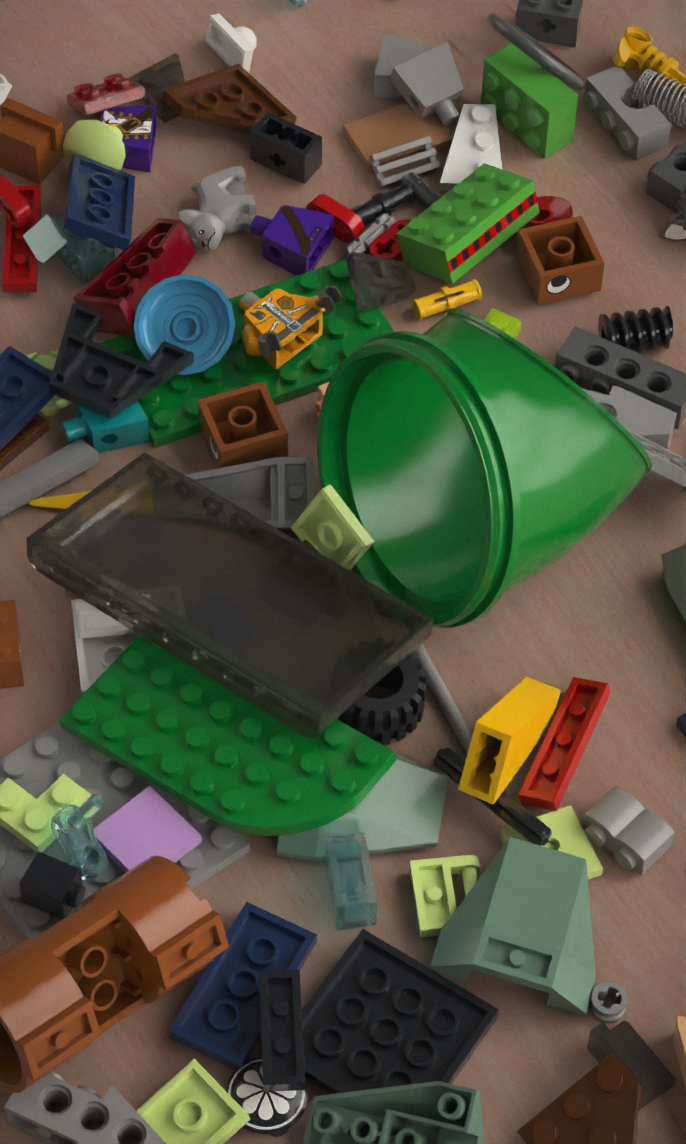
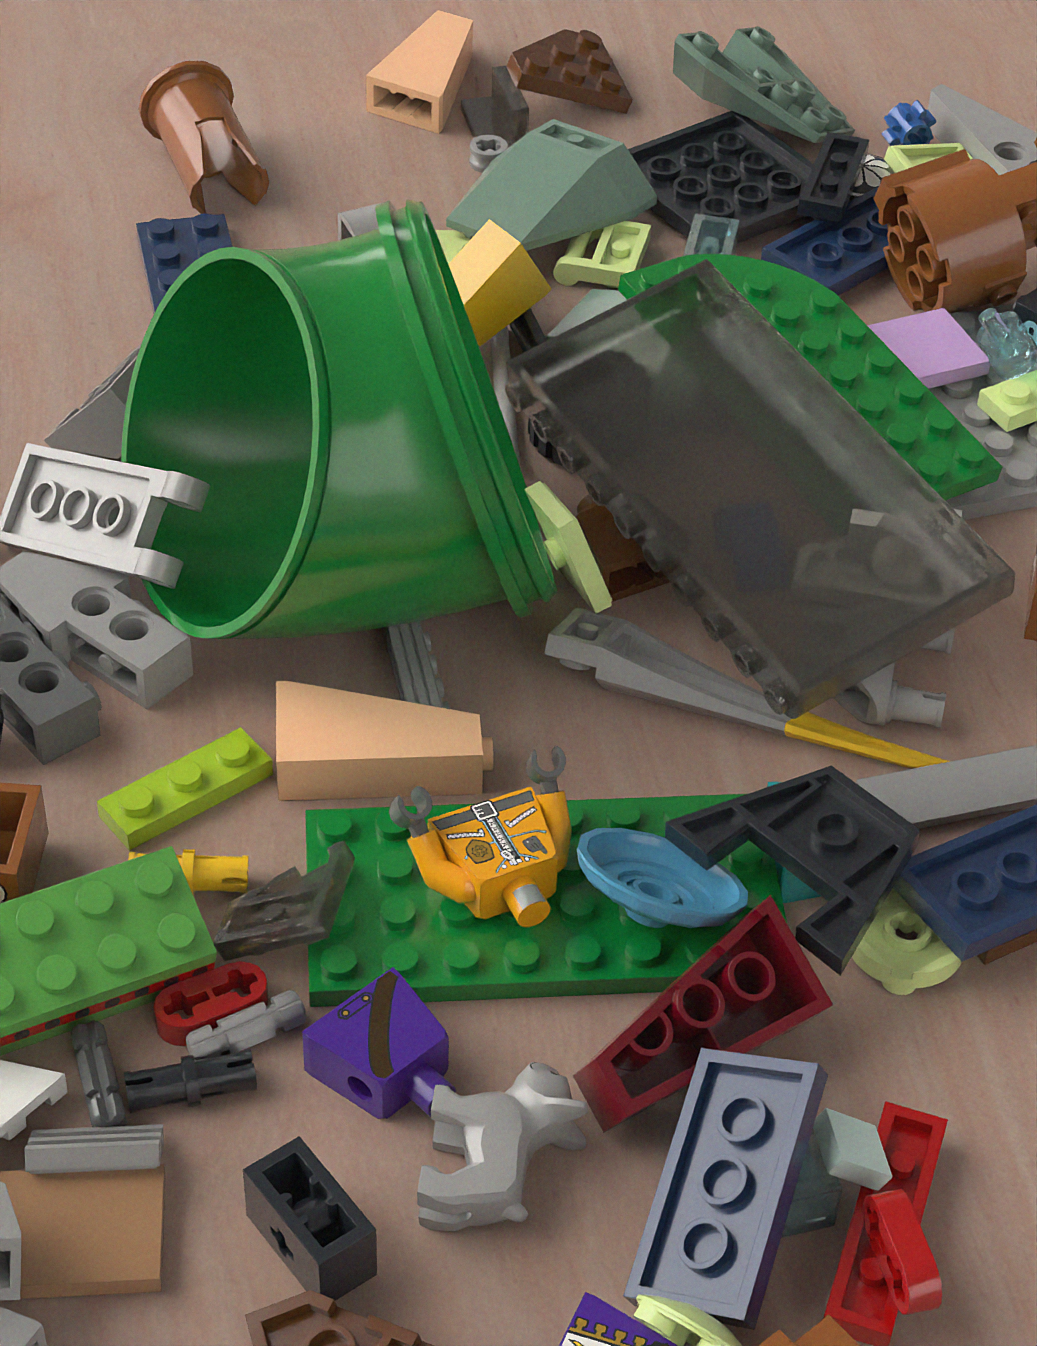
camera: 160 degrees left, 10 degrees down
(242, 426) = (625, 737): dark orange brick -> none
(346, 222) = (291, 1071): red beam -> none

